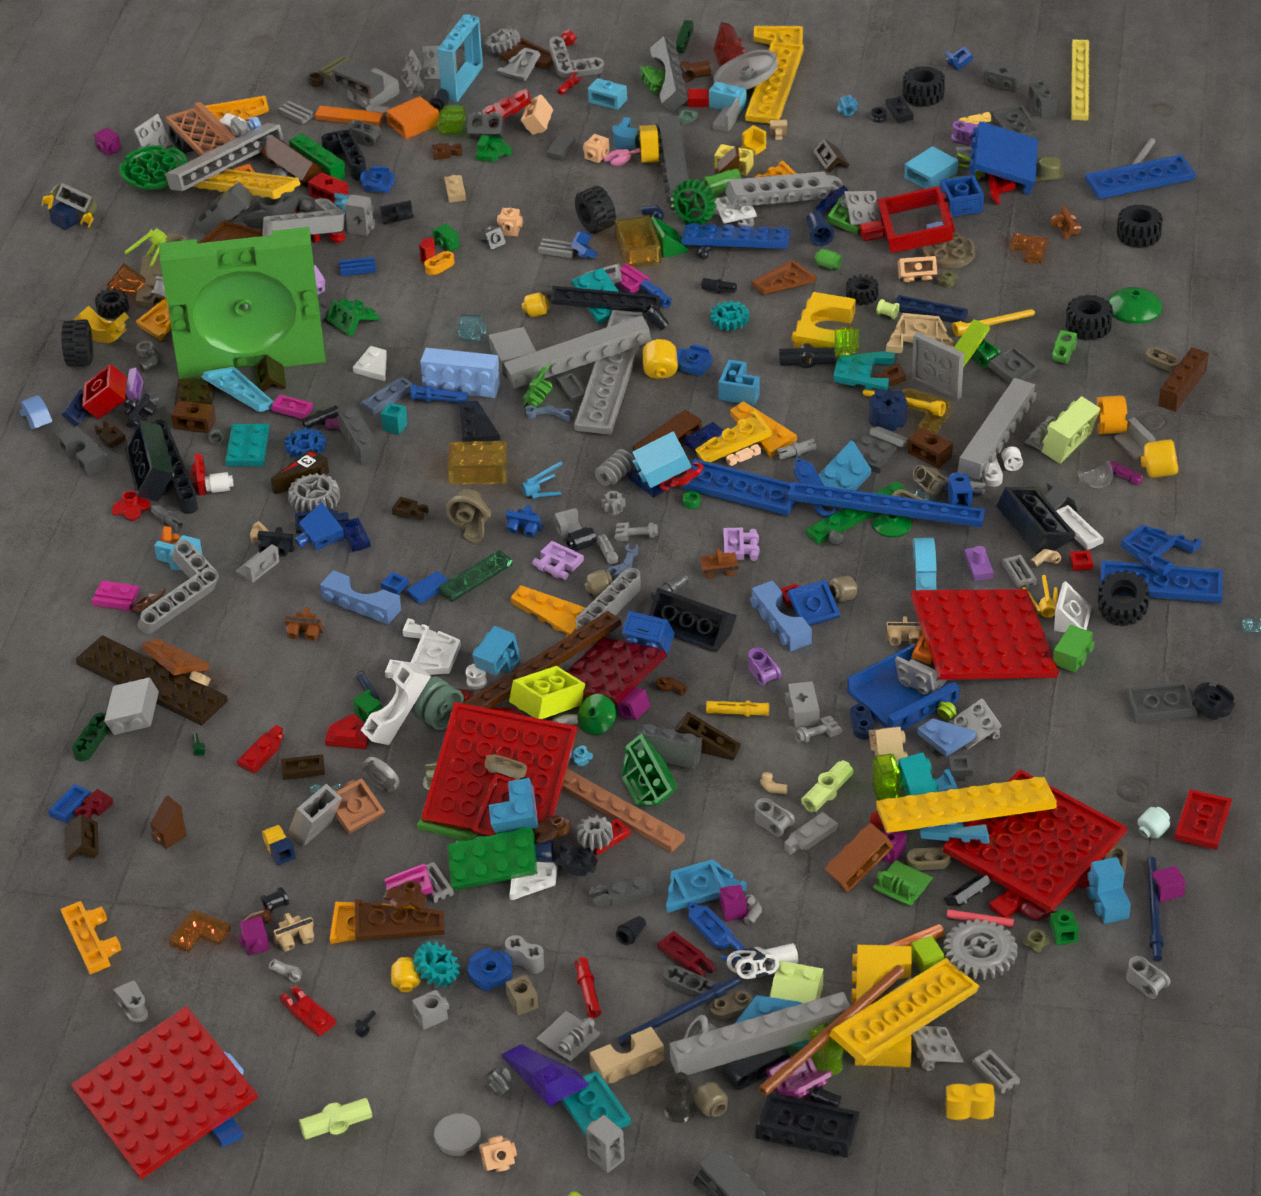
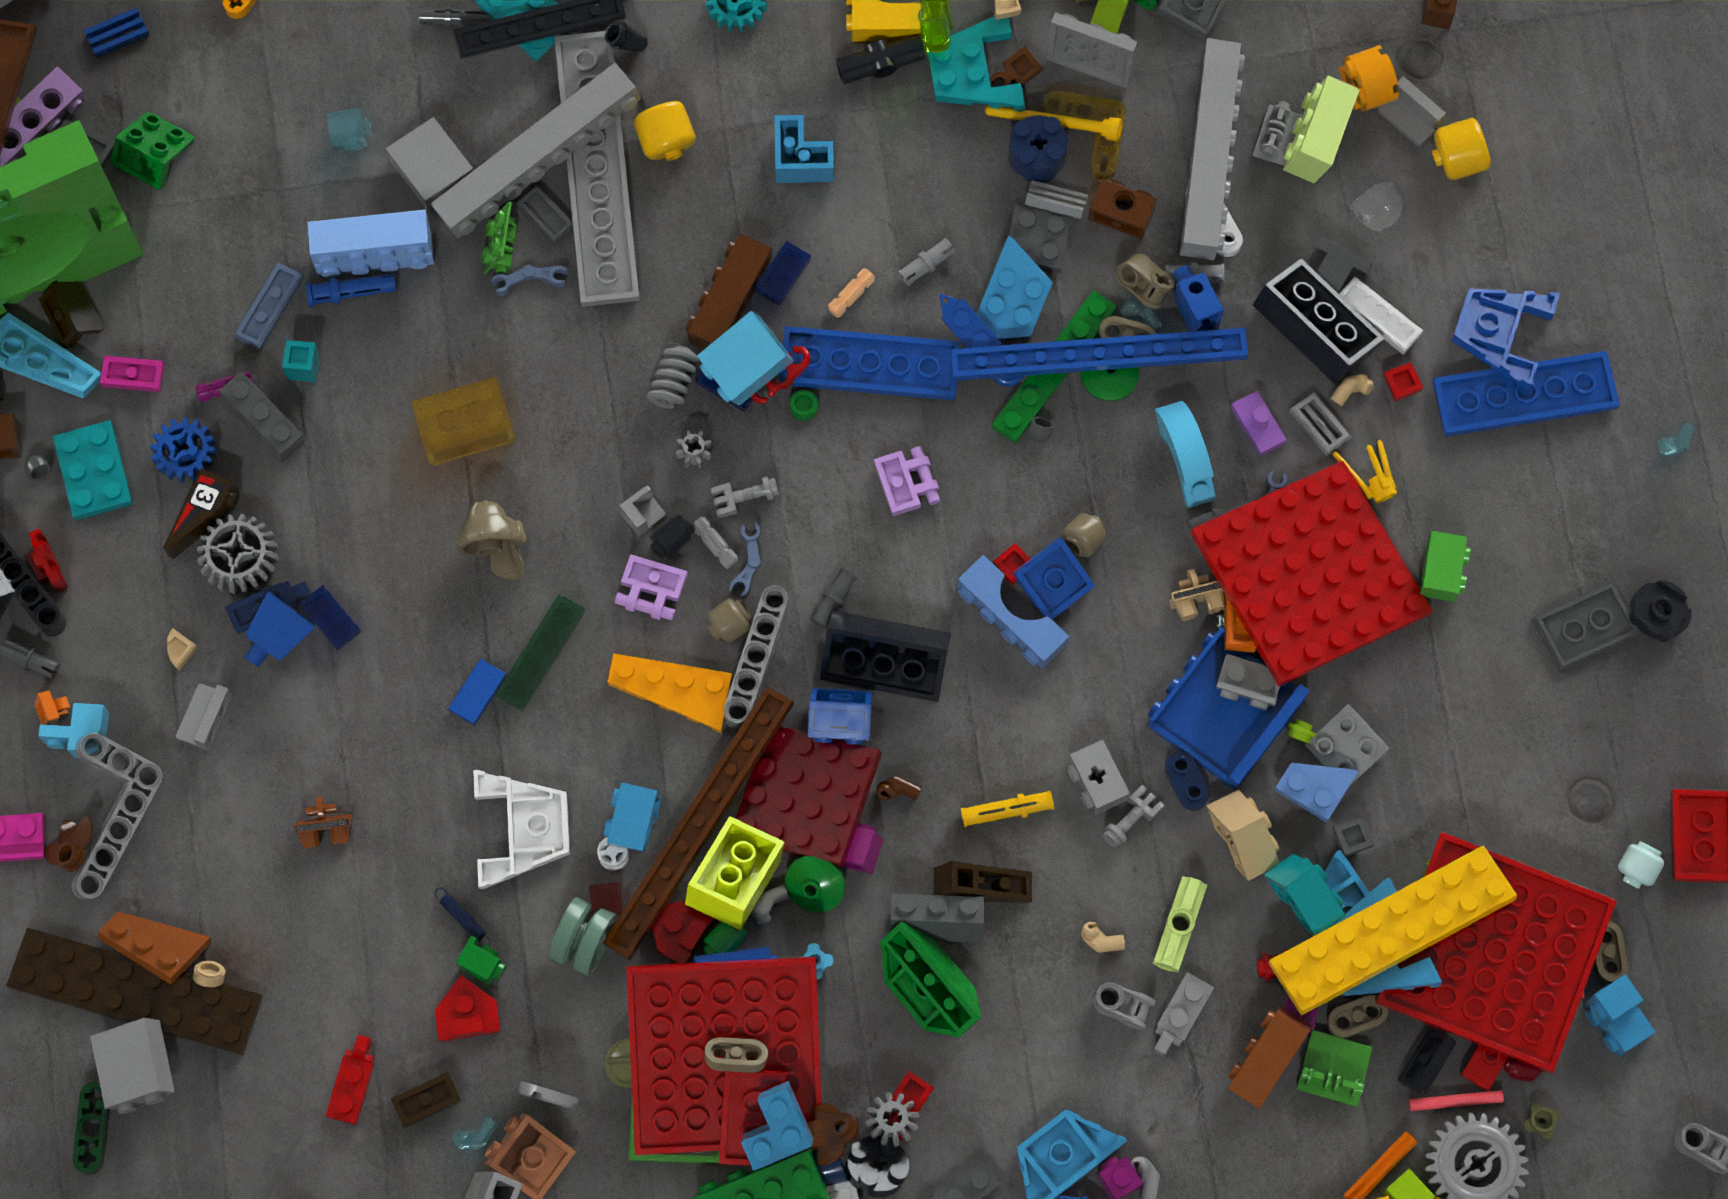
camera: 20 degrees left, 30 degrees up
(199, 748) = (258, 1107): dark green hand -> none
(219, 482) = (81, 567): white brick -> none
(278, 538) = (215, 663): black hips -> none
(320, 417) = (185, 384): black pin -> none
(372, 364) = (221, 243): white wing -> none
(381, 606) = (424, 754): medium blue arch -> none
(385, 723) = (540, 953): white arch -> none
(394, 583) = (426, 701): blue plate -> none
(406, 508) = (388, 541): dark brown plate -> none
(476, 423) = (426, 331): black wing -> none
(524, 518) = (588, 526): blue hips -> none
(532, 486) = (560, 447): dark azure plant -> none
(535, 304) = (430, 54): yellow head -> none
(615, 807) = (911, 1050): nougat plate -> none
(687, 363) = (726, 101): blue plate -> none
(719, 562) = (891, 534): dark orange hips -> none
(741, 436) = (837, 262): yellow wing -> none
(762, 666) = (1020, 723): medium lavender piece -> none
(780, 436) = (871, 234): light orange wing -> none
(885, 776) = (1262, 897): clear neon green brick -> none
(1012, 458) = (1247, 200): white wheel -> none
(1062, 922) = (1571, 1098): green brick -> none
(1071, 609) = (1419, 490): white slope -> none
(1123, 583) = (1513, 452): black tyre -> none
(1126, 473) = (1414, 182): magenta axle -> none
(1156, 938) = (1698, 1073): dark blue bar -> none
(1170, 883) = (1691, 969): magenta panel -> none

